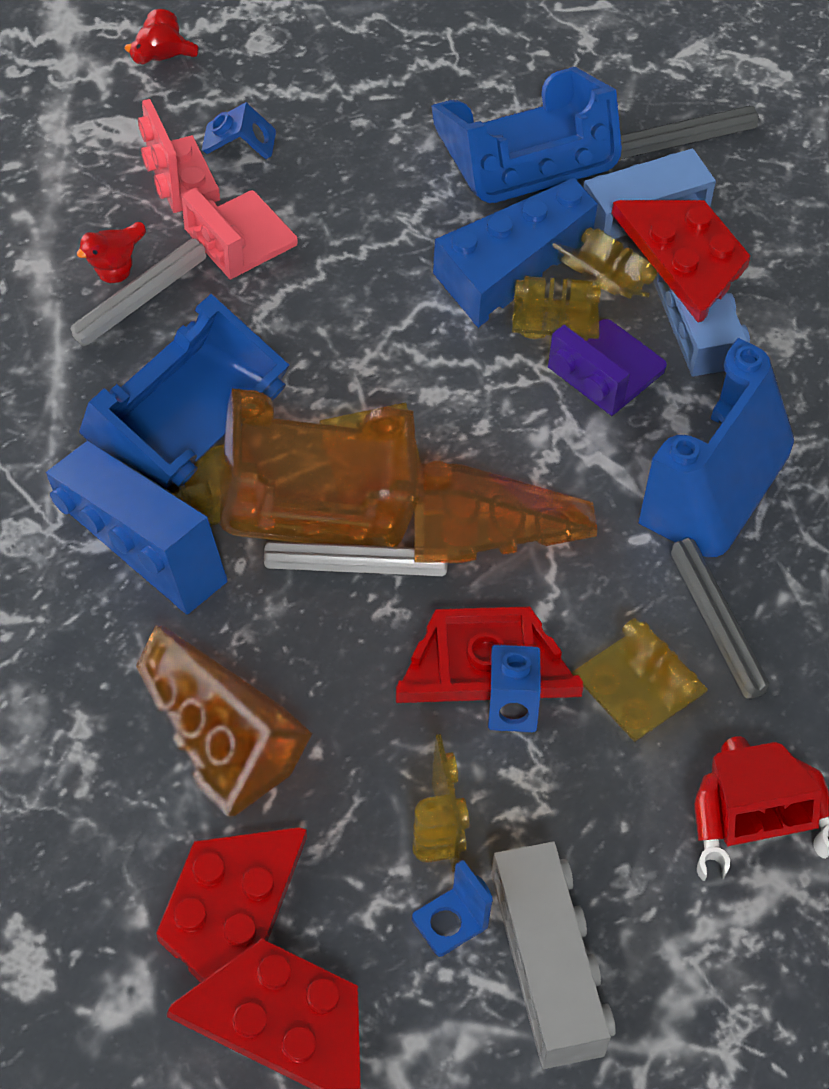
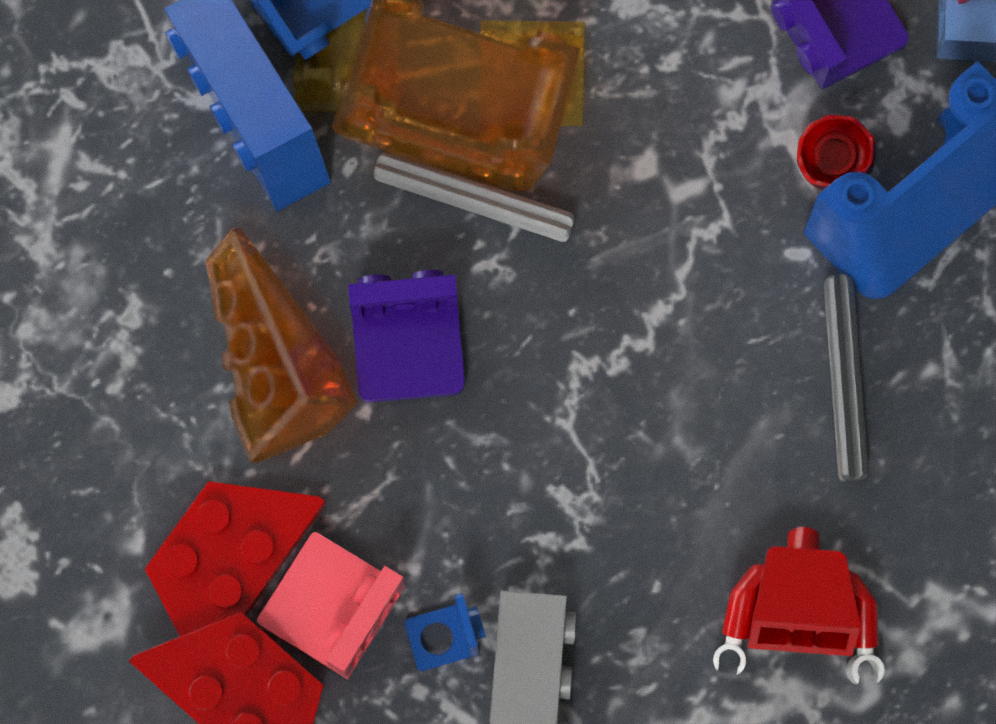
camera: 20 degrees right, 20 degrees up
(335, 674) = (406, 336): none -> dark purple bracket
(343, 915) = (331, 604): none -> coral bracket
(441, 818) = (459, 545): clear yellow hinge -> none
(457, 650) = (573, 357): red wing -> none
(481, 511) = (627, 184): clear orange wedge -> none
(514, 680) = (591, 400): blue bracket -> none
(635, 448) = (834, 148): none -> red hair
(640, 680) = (730, 429): clear yellow hinge -> none

